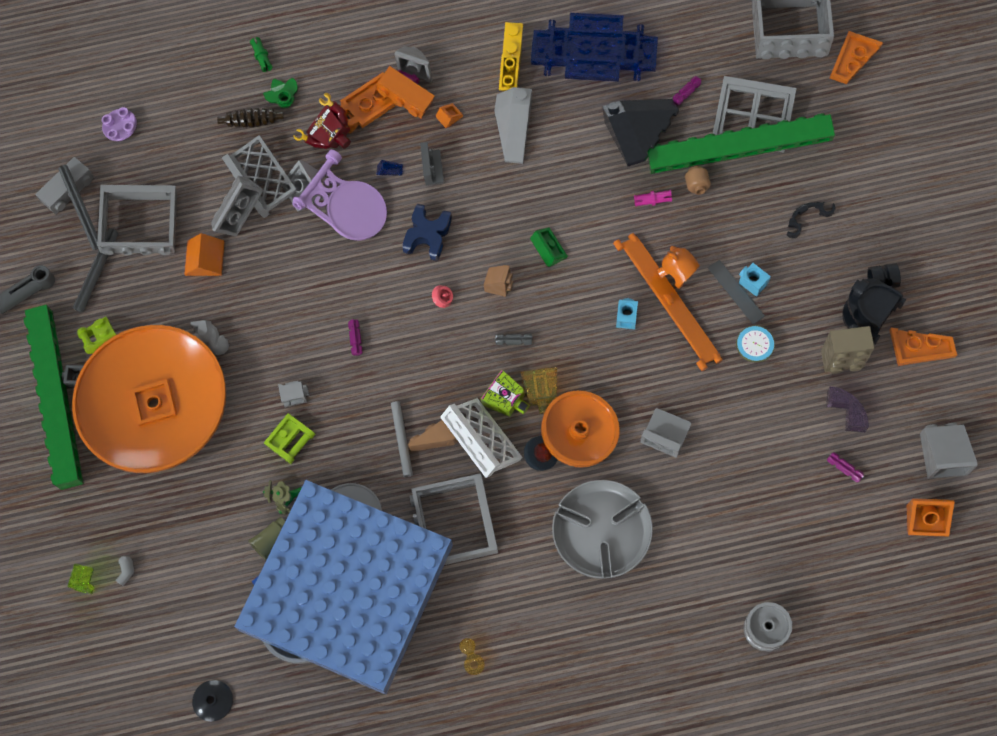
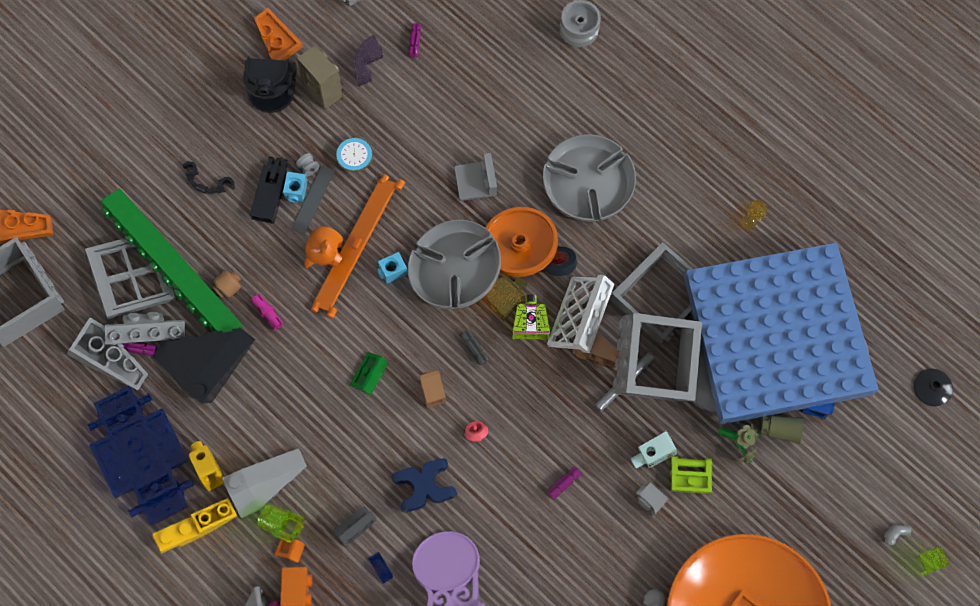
camera: 135 degrees left, 0 degrees up
(325, 420) = (661, 445): none -> light aqua torso
(419, 482) = (687, 360): none -> light grey window
(475, 113) = (275, 520): none -> clear neon green piece
(551, 86) = (206, 466): none -> yellow torso
(592, 358) = (454, 264): none -> light grey piece
(695, 61) = (106, 358): none -> light grey wedge
(697, 100) = (144, 328): none -> light grey bracket
(757, 251) = (267, 194): none -> black hinge
(769, 301) = (307, 164): none -> light grey wheel
(888, 274) = (231, 90): black wheel -> none

